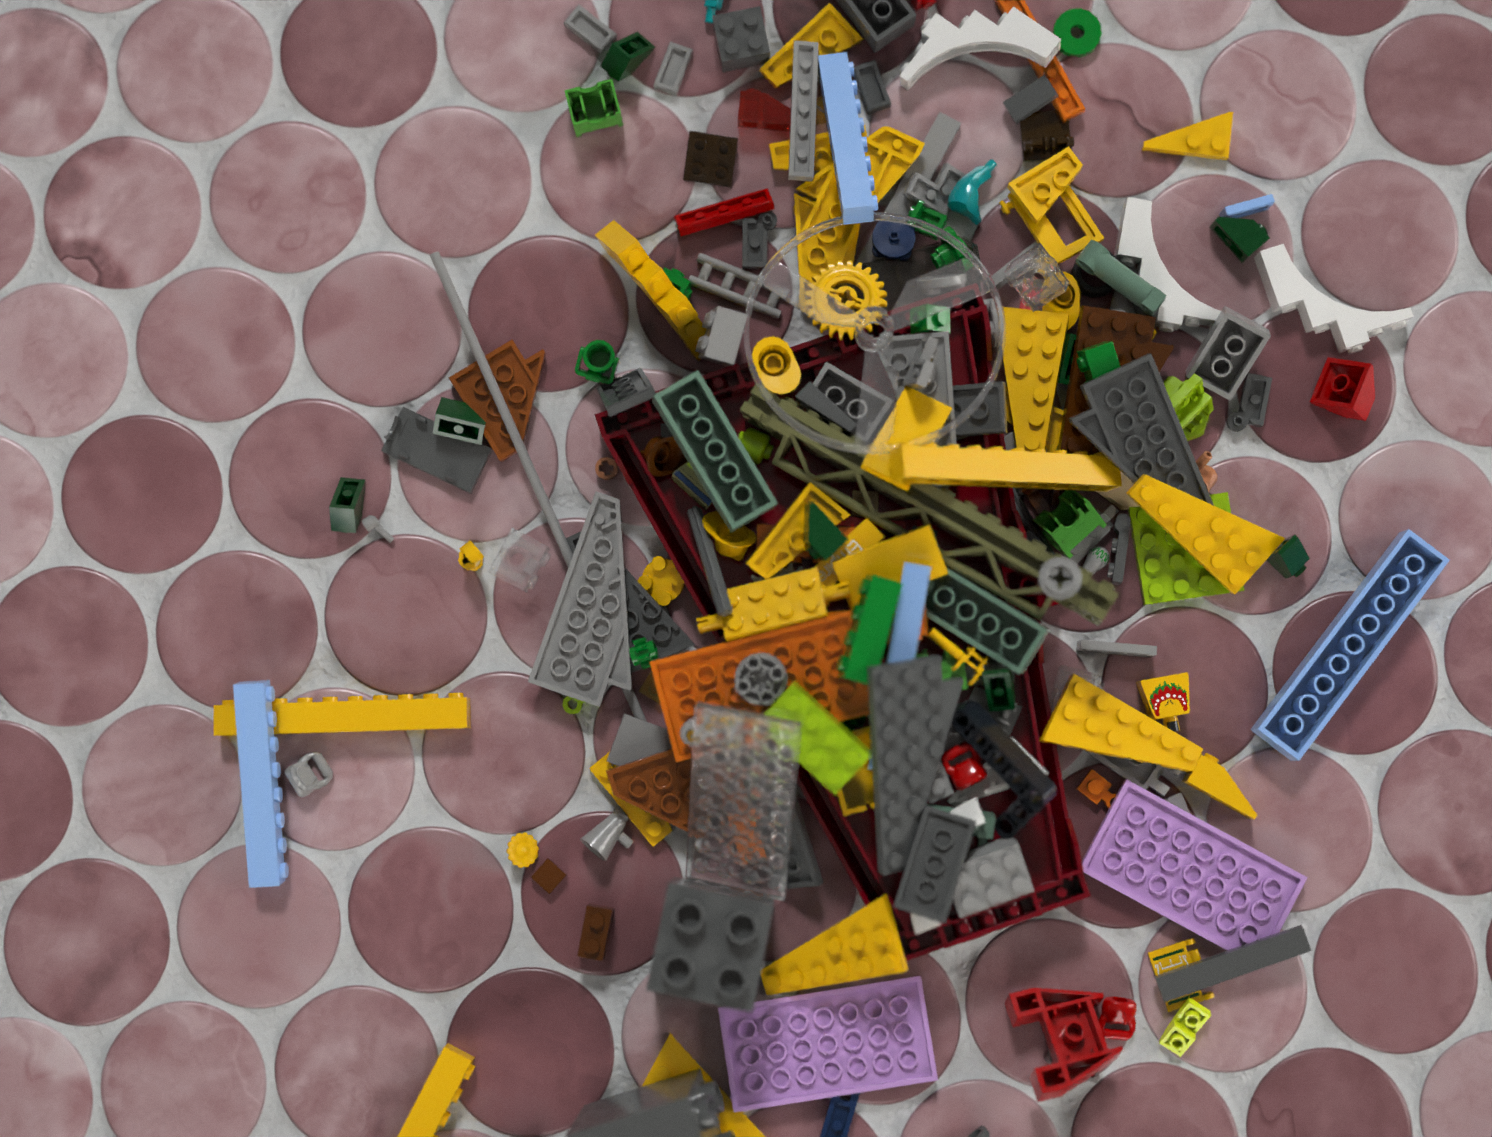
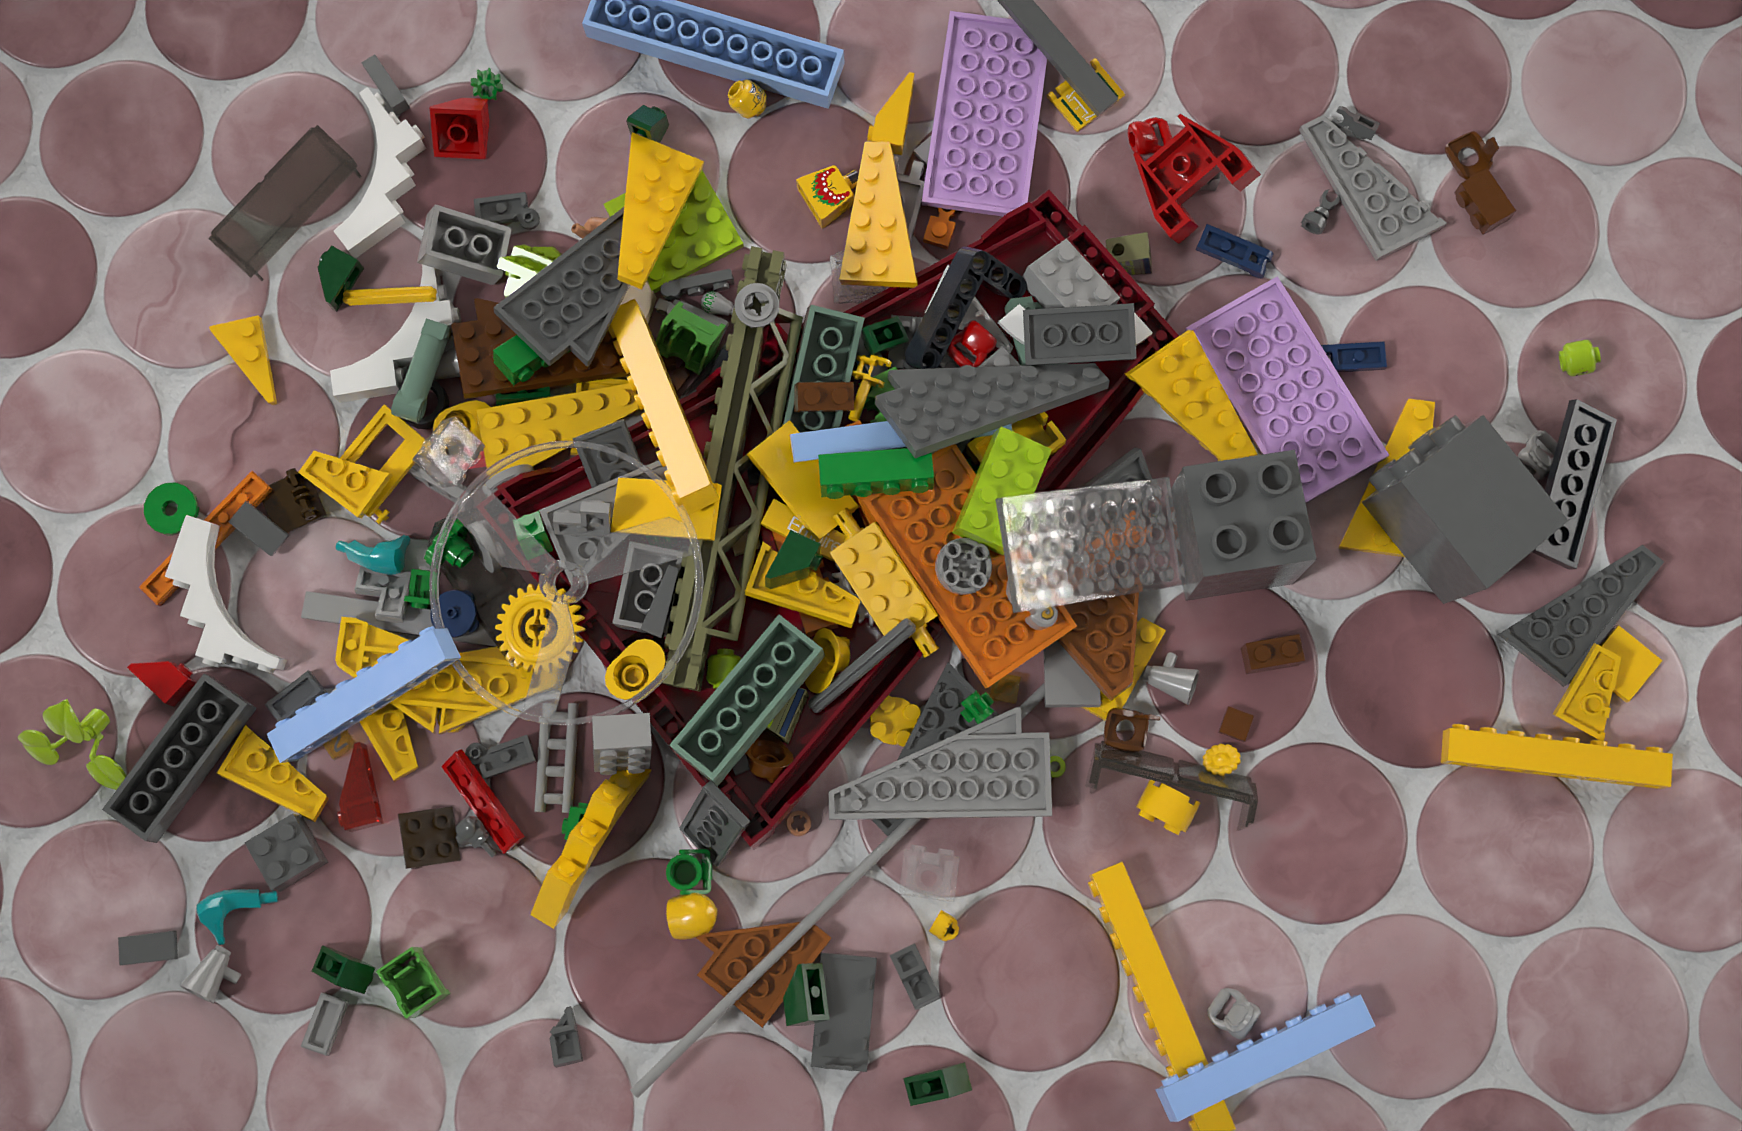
camera: 110 degrees left, 5 degrees down
(372, 522) = (947, 1052): light grey hand -> none
(442, 519) = (915, 976): none -> dark grey slope
(498, 785) = (1167, 806): none -> yellow brick
(501, 216) = (565, 1040): none -> dark grey slope
(521, 805) = (1179, 774): none -> clear smoke piece
(561, 350) = (690, 915): none -> yellow piece
(564, 781) = (1140, 724): none -> reddish brown piece
(673, 69) = (341, 916): light grey tile -> none
(701, 196) = (473, 832): none -> dark grey piece
(803, 111) = (346, 753): light grey plate -> none
(957, 610) = (824, 396): none -> reddish brown brick
(978, 1051) = (1234, 251): none -> dark blue plate
(1003, 956) = (1132, 253): none -> olive torso
(1116, 648) = (797, 255): light grey tile -> none
(1184, 1026) = (1134, 76): neon yellow slope -> none
(1204, 274) = (390, 295): none -> yellow axle
(1248, 207) = (306, 279): light blue tile -> none
(1284, 656) = (747, 98): none -> yellow head
(1326, 209) = (283, 201): none -> clear smoke piece
(1380, 425) = (486, 84): none -> green gear
(1412, 335) = (385, 85): none -> dark grey piece

